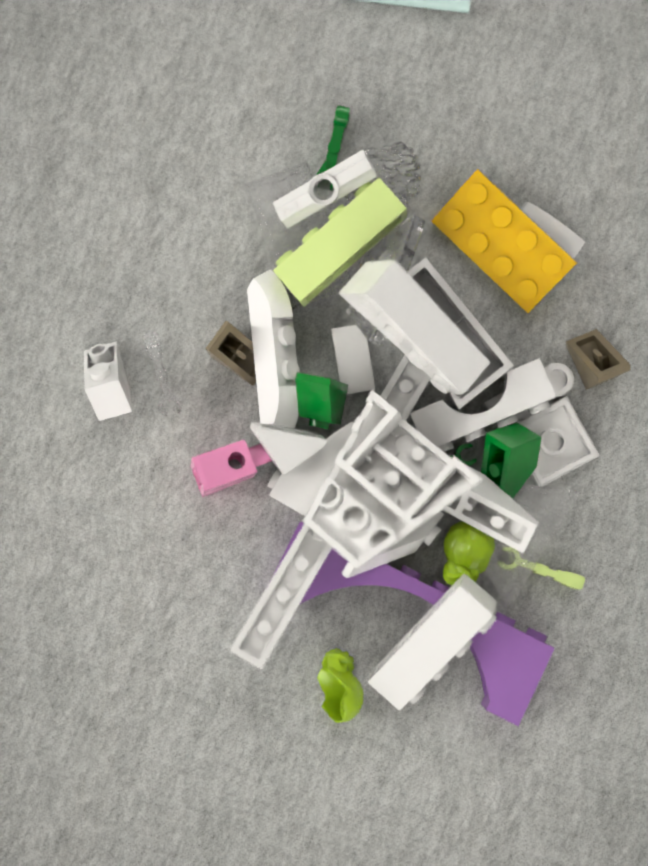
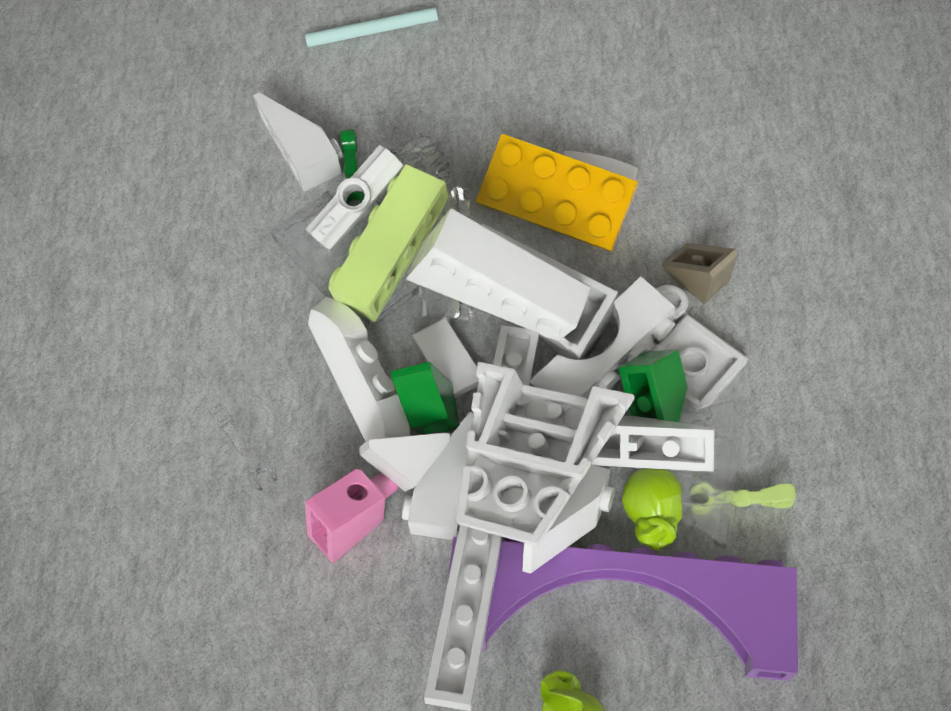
camera: 20 degrees left, 20 degrees down
(106, 381) = (182, 472): white slope -> none
(233, 352) = (314, 392): dark tan slope -> none
(300, 106) = (301, 142): none -> white slope
(433, 642) = (657, 614): white brick -> none

